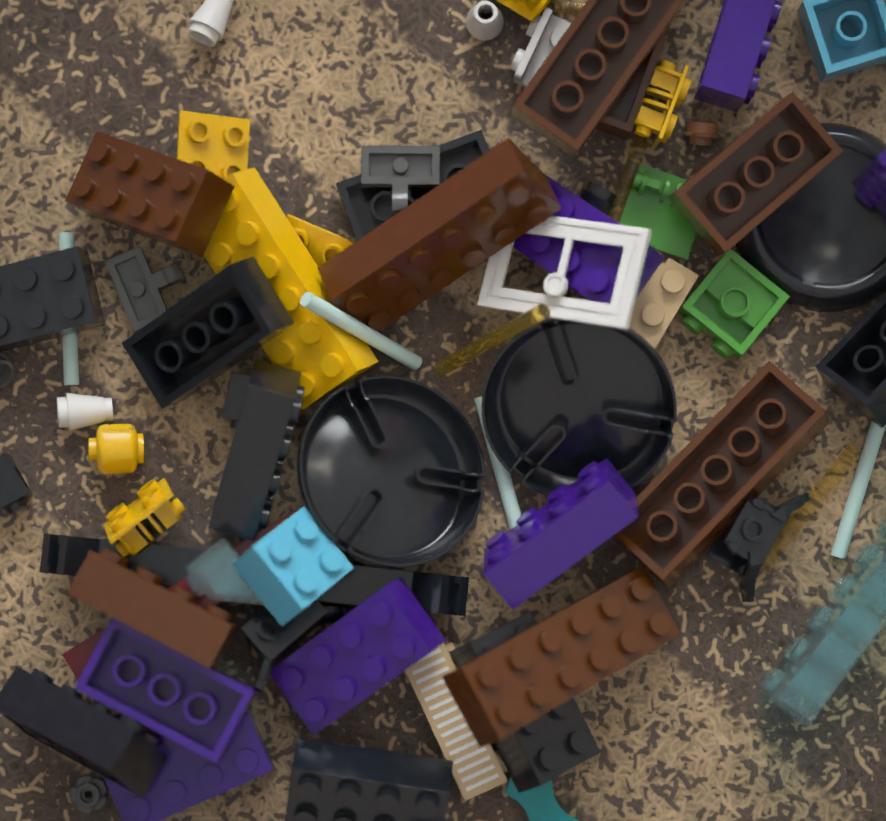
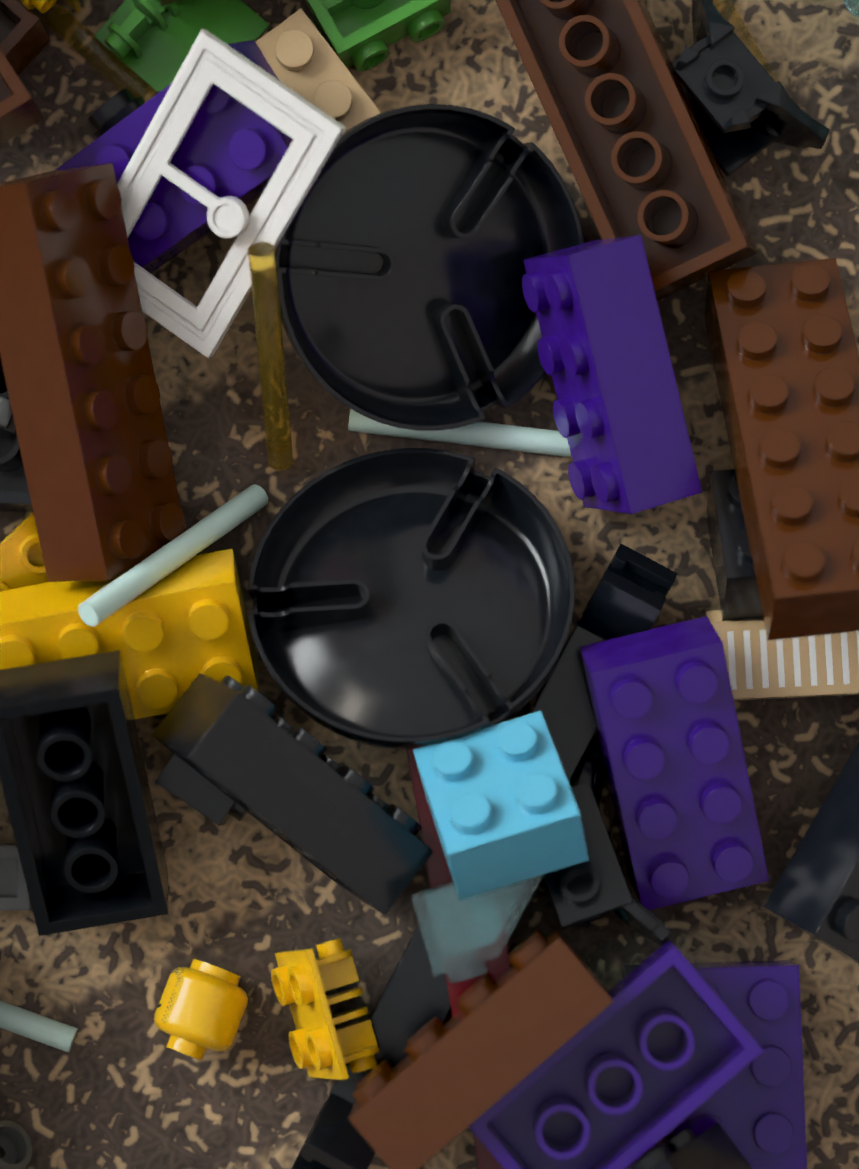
camera: 65 degrees left, 0 degrees up
(83, 410) = (120, 1038): white cone -> none

